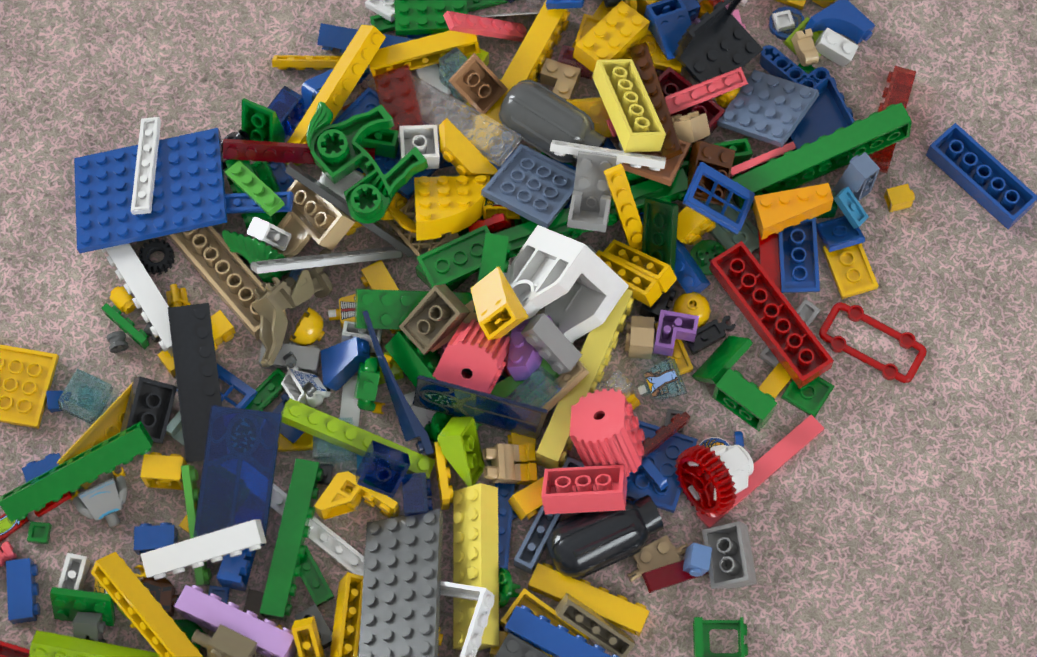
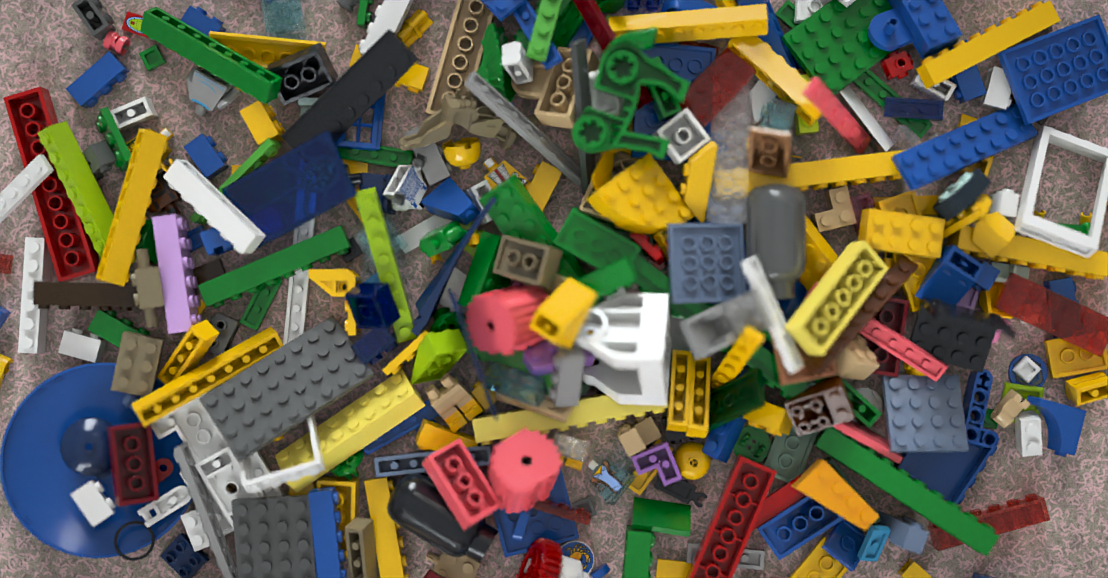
camera: 55 degrees right, 20 degrees up
(708, 212) = (818, 431): blue piece -> none

